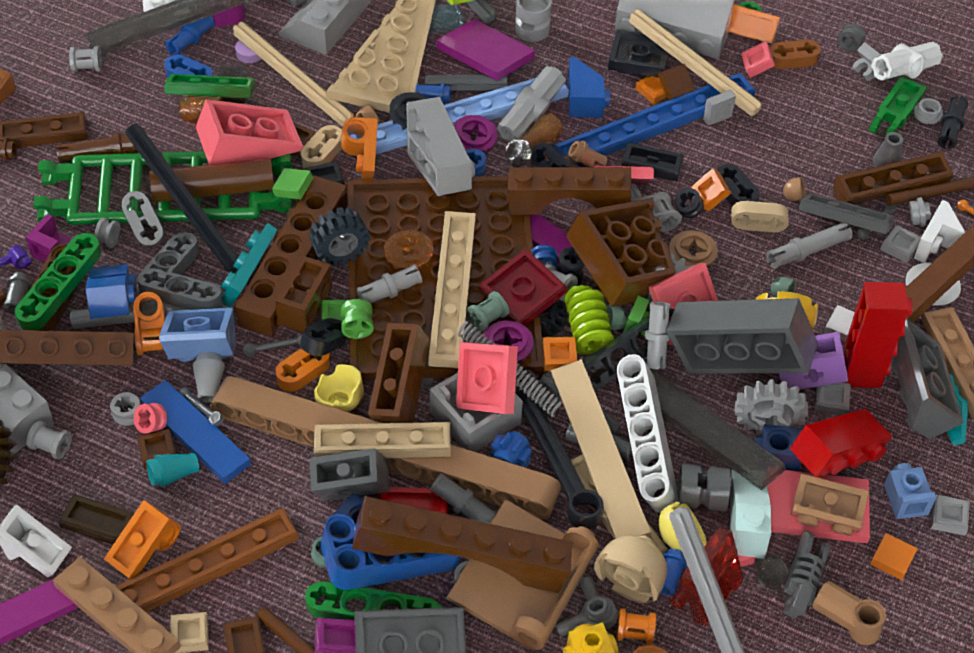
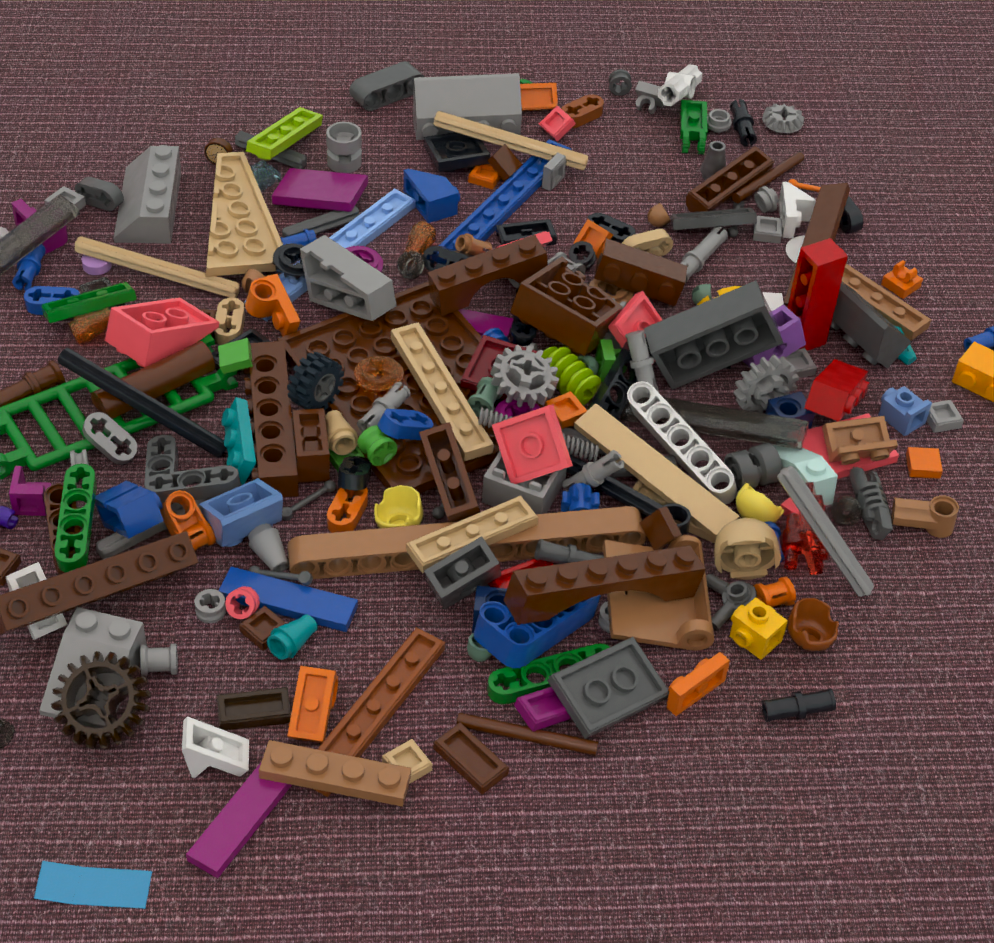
camera: 30 degrees left, 5 degrees down
(19, 285) = (26, 542): dark grey pin -> none
(335, 292) = (341, 436): none -> tan cone
(392, 307) = (404, 423): none -> blue beam
(531, 104) = (395, 220): light grey piece -> none
(536, 317) = (524, 376): none -> light grey gear
(538, 429) = (595, 472): none -> light grey pin
(562, 511) = (660, 528): none -> reddish brown tile
(728, 242) = (640, 272): none -> reddish brown brick

